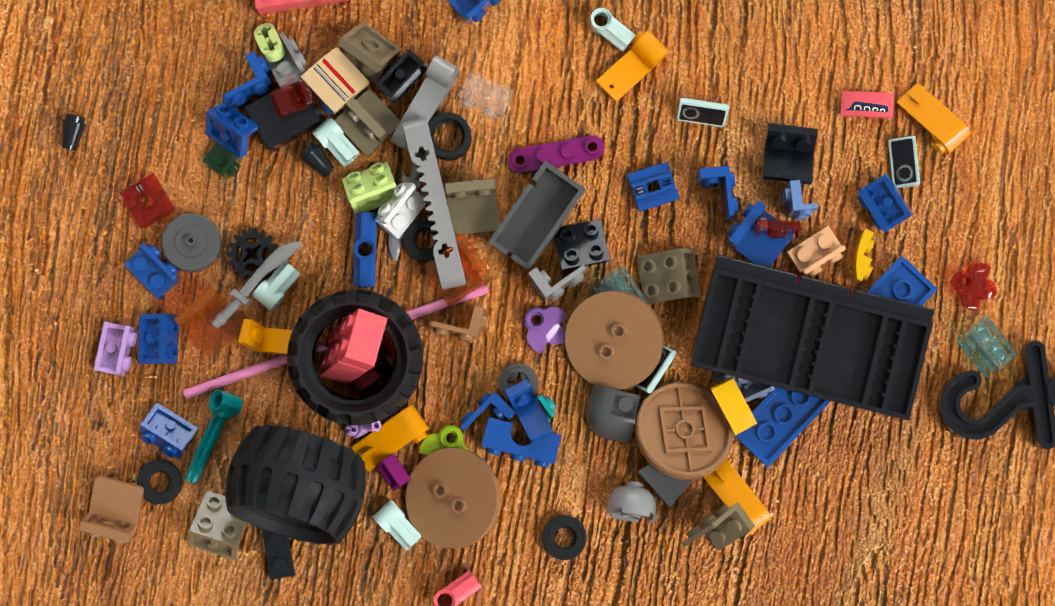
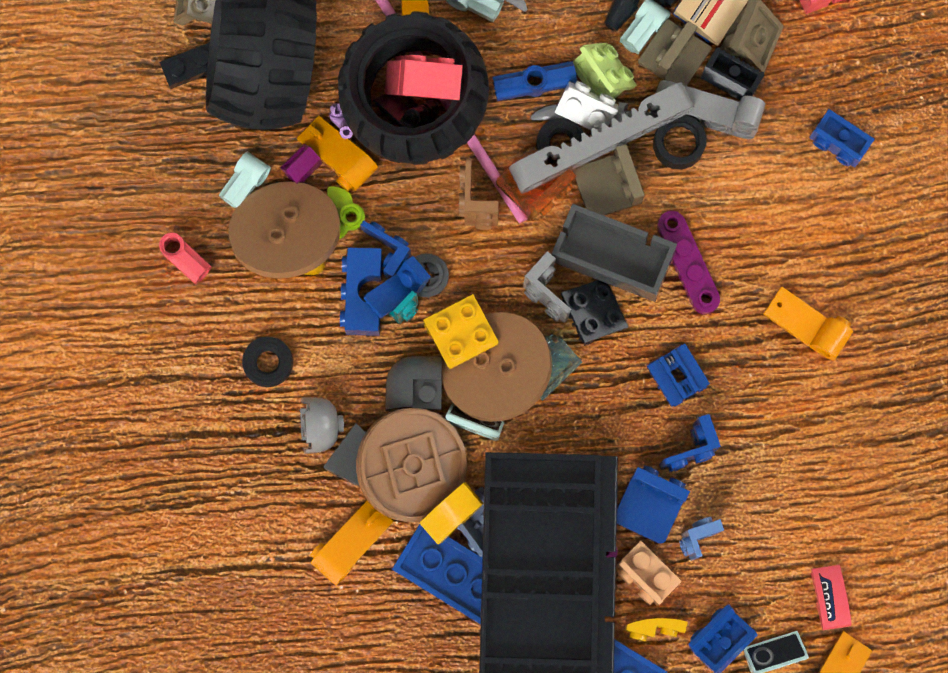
camera: 75 degrees right, 5 degrees down
(485, 95) = (735, 172): clear bracket -> none
(548, 330) = (494, 296): medium lavender plate -> none
(578, 363) = (460, 332): none -> yellow bracket
(613, 31) = (842, 292): light aqua piece -> none
(669, 275) = (583, 414): dark tan bracket -> none
(702, 112) = (775, 412): slope -> none
(723, 528) = (312, 533): dark tan bracket -> none
(777, 228) = (662, 519): clear red piece -> none
(789, 153) = (752, 517): black bracket -> none

